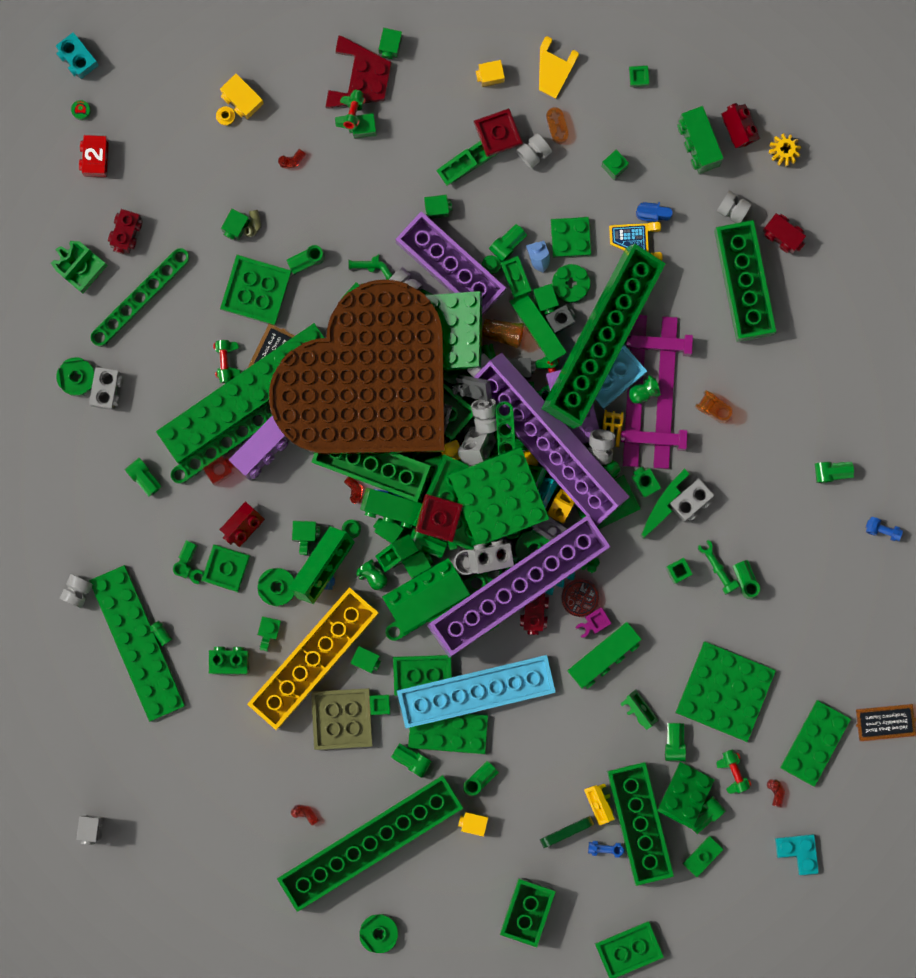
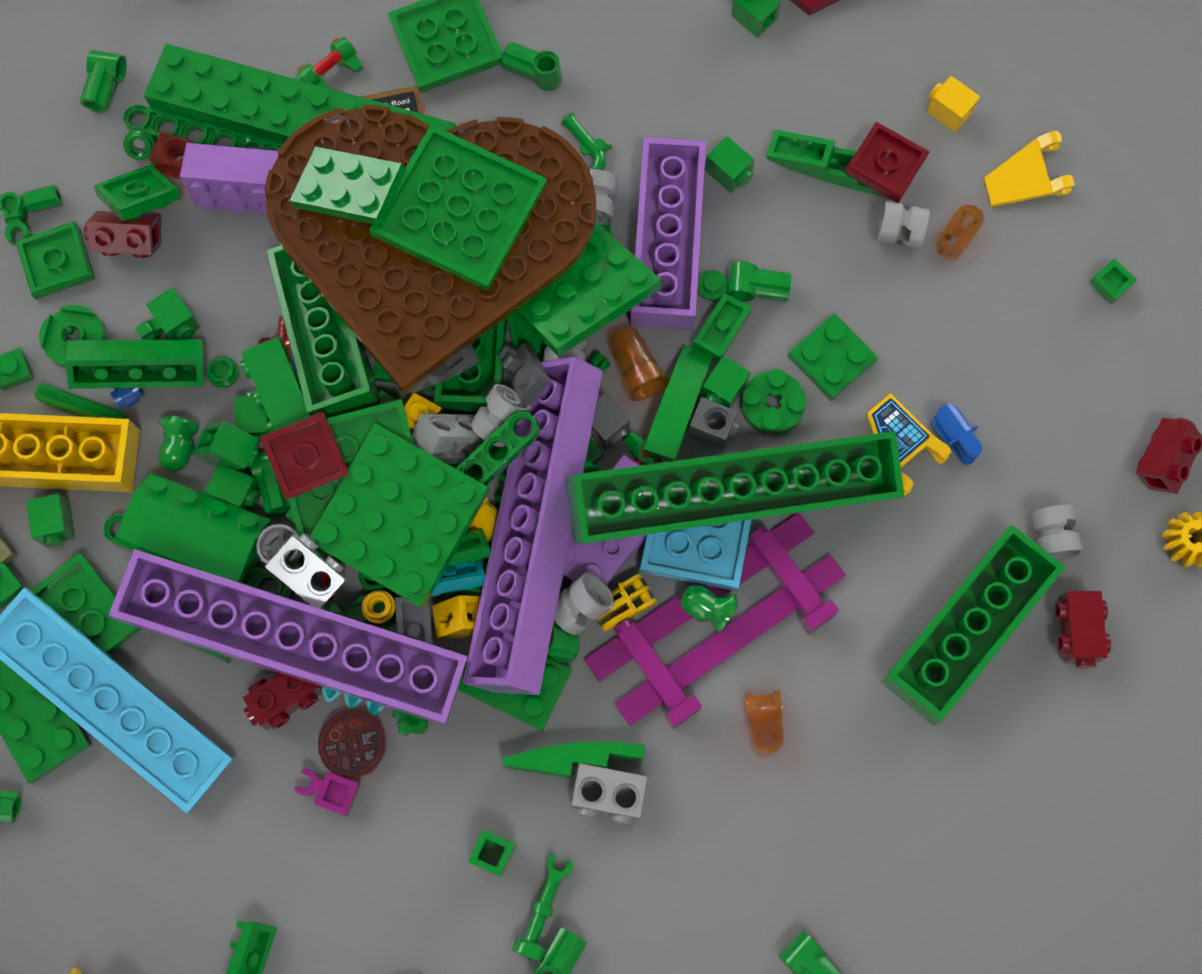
camera: 50 degrees right, 10 degrees down
(199, 484) = (138, 153): none -> green plate
(226, 502) = (137, 192): none -> green plate
(318, 606) = (75, 403): none -> green axle
(324, 400) = (347, 185): none -> plate
(374, 357) = (460, 207): none -> green plate
(528, 532) = (373, 598): none -> yellow plate
(539, 255) = (774, 334): medium blue plate -> none
(604, 655) = (291, 842): green brick -> none
(615, 164) = (975, 336): green brick -> none
(652, 486) = (573, 716): green brick -> none
(700, 140) = (1105, 415): green brick -> none

